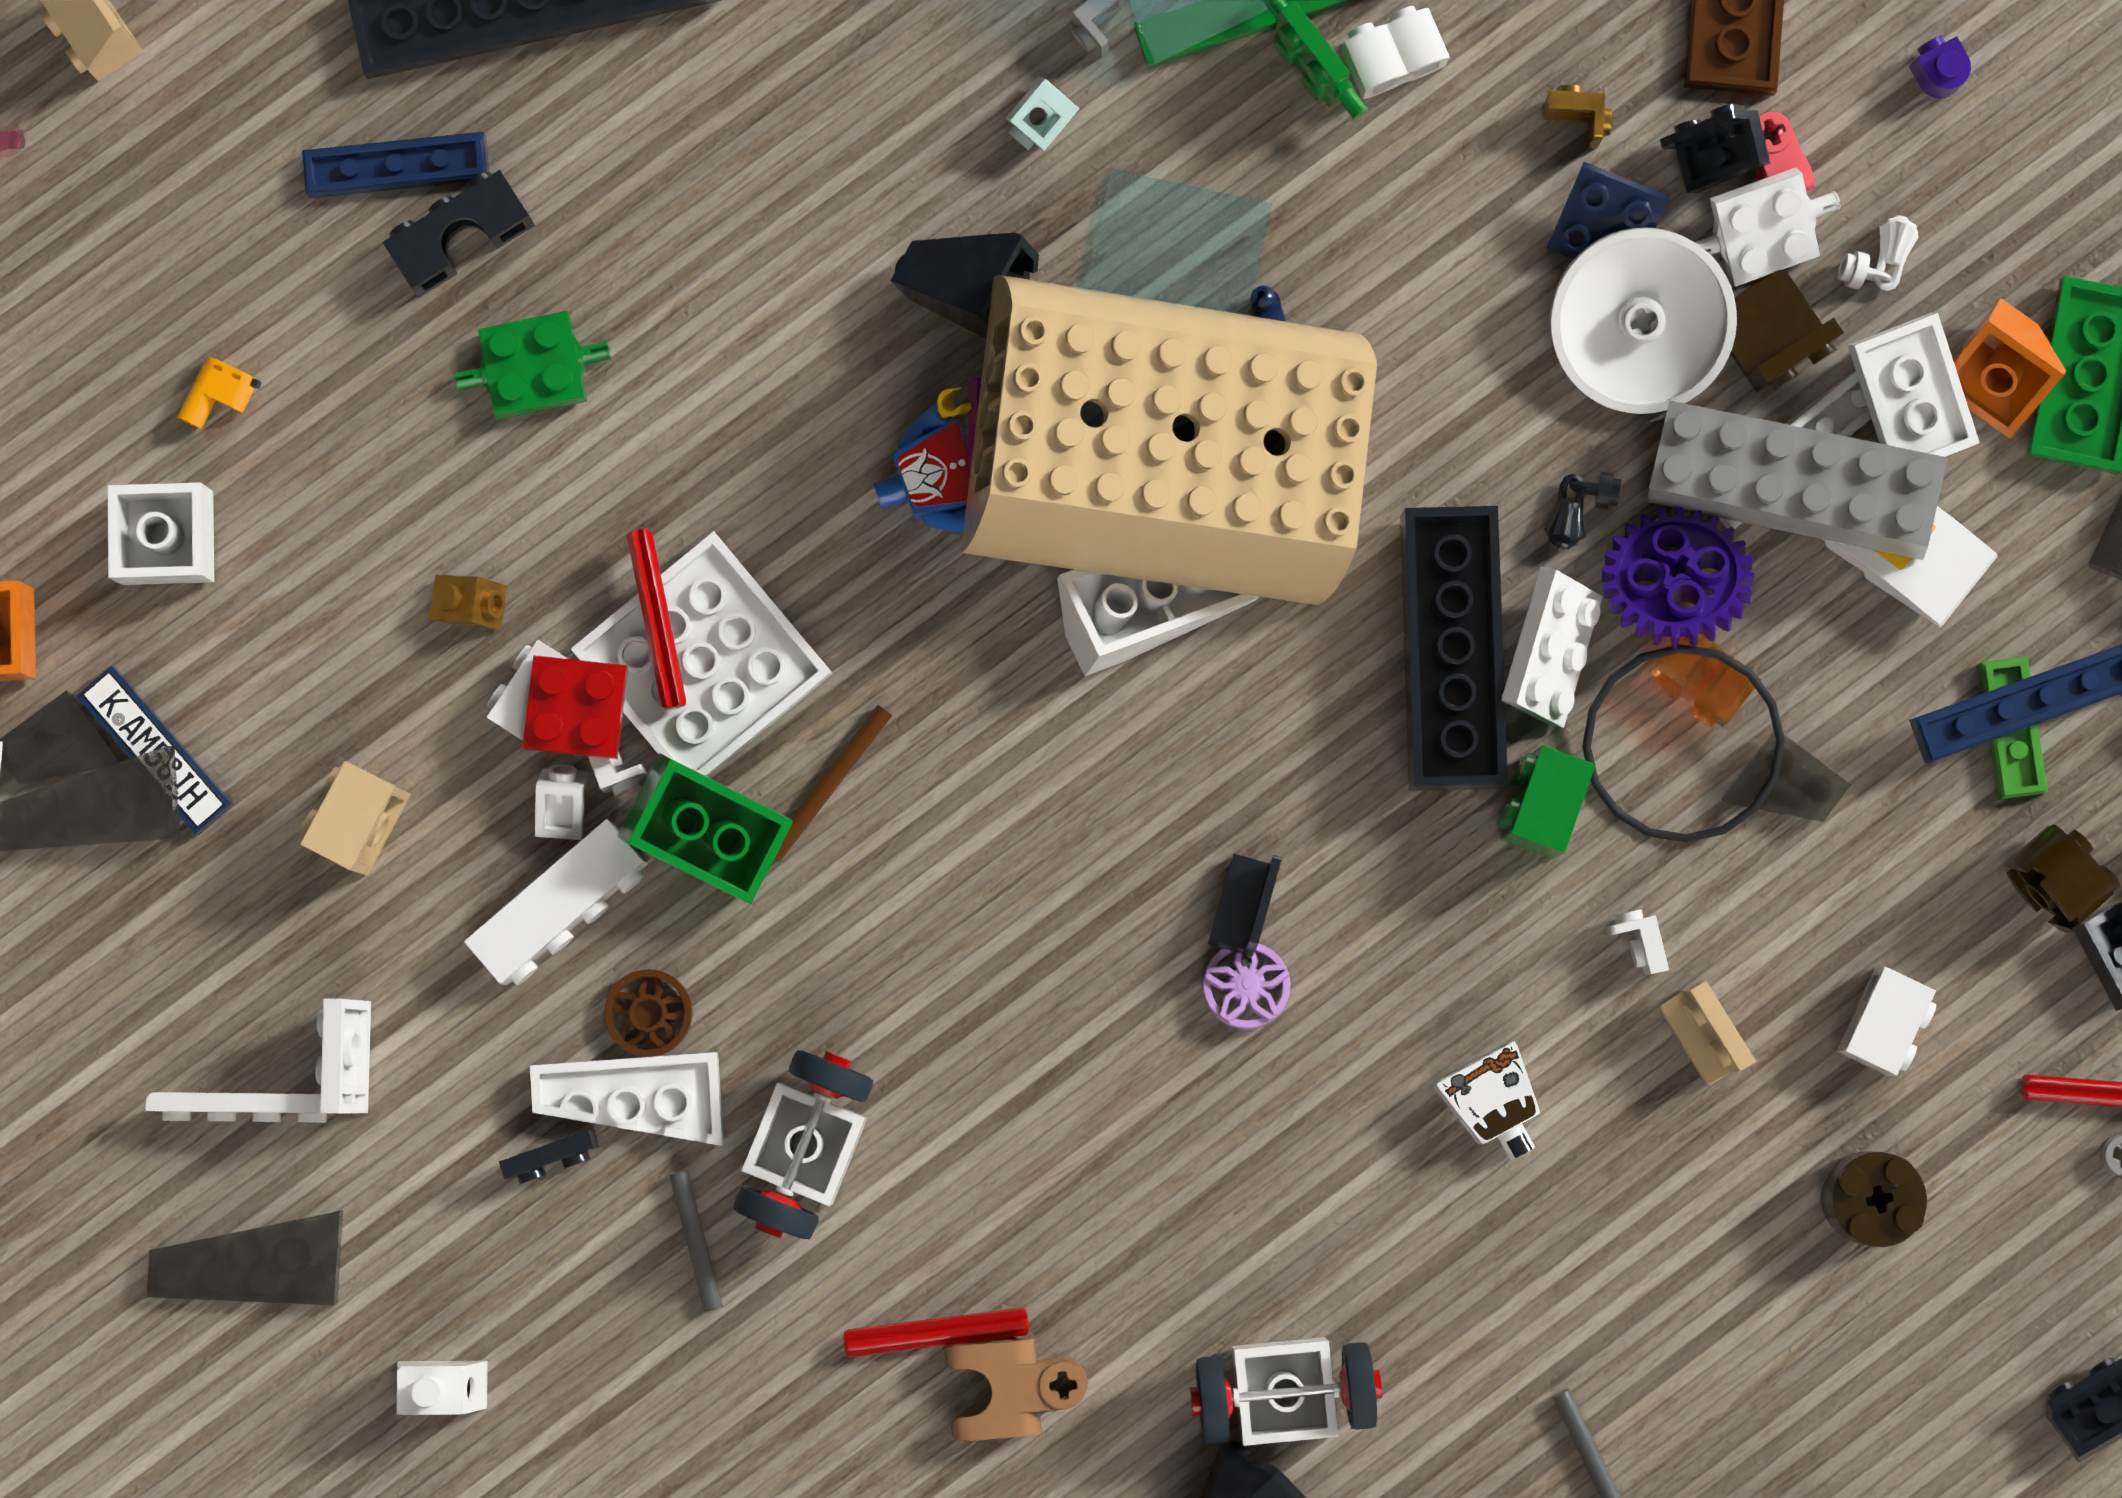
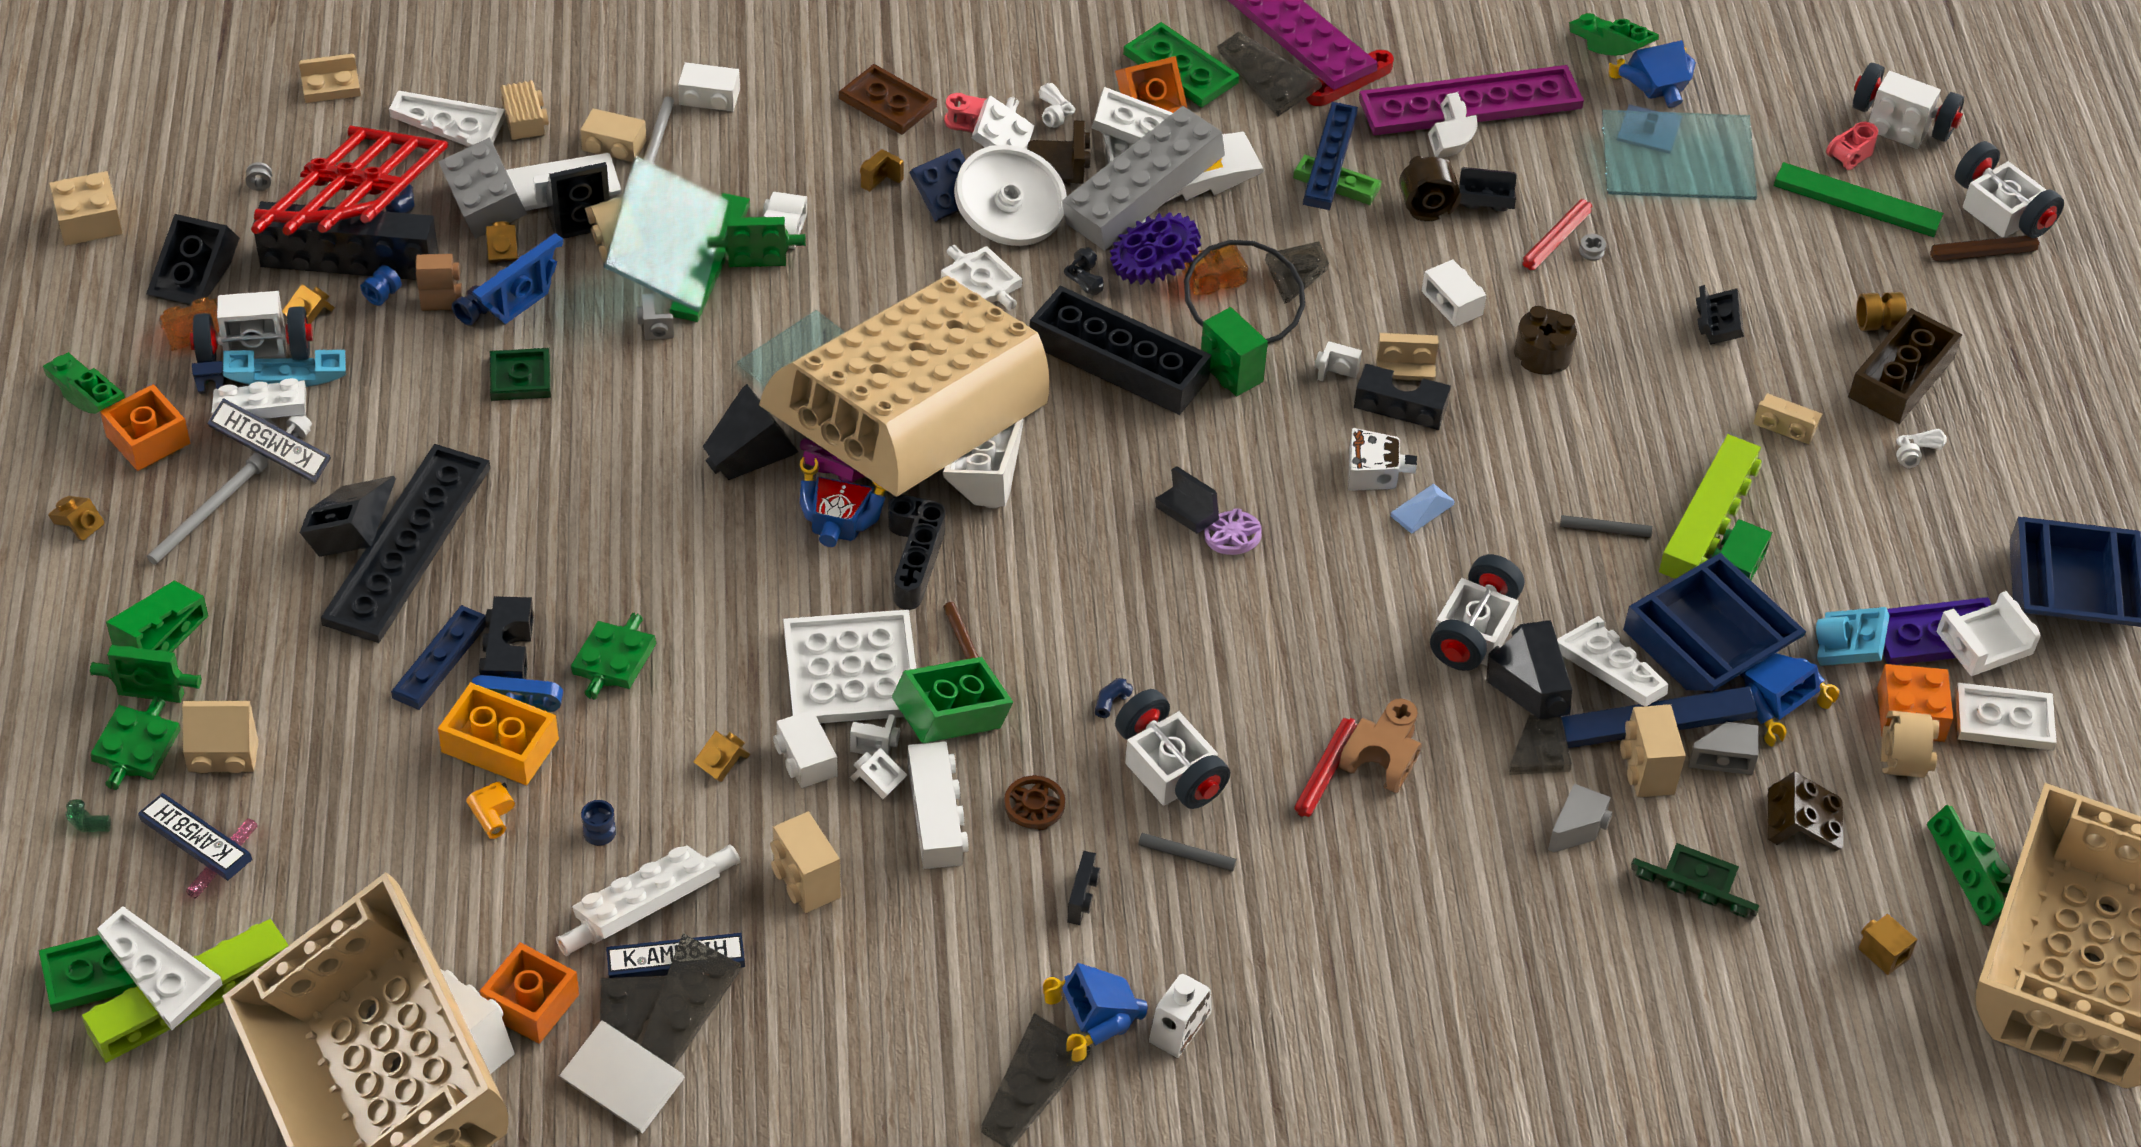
camera: 60 degrees left, 35 degrees down
(160, 533) = (552, 869): white brick -> none
(207, 660) = (643, 894): none -> white plate
(264, 525) = (598, 822): none -> dark blue wheel
(308, 327) = (498, 733): none -> light orange brick
(339, 1071) = (958, 956): white bracket -> none
(383, 1287) = (1099, 1004): none -> blue torso
(392, 297) = (536, 693): none -> blue beam
(575, 707) = (832, 720): red plate -> none
(646, 1094) = (1081, 825): white wing -> none
(656, 619) = (812, 664): red axle -> none
(875, 998) = (1116, 688): none -> dark blue arm
(929, 617) = (925, 527): none -> black beam
(1057, 112) = (683, 371): light aqua brick -> none
(1462, 1200) = (1422, 508): none -> light blue slope
(1472, 379) = (984, 274): none -> white plate
(1552, 647) = (1152, 309): white plate -> none
(1618, 1028) = (1421, 406): none -> black arch
(1718, 147) = (947, 123): black bracket -> none
(1941, 67) = (980, 38): dark purple plate -> none

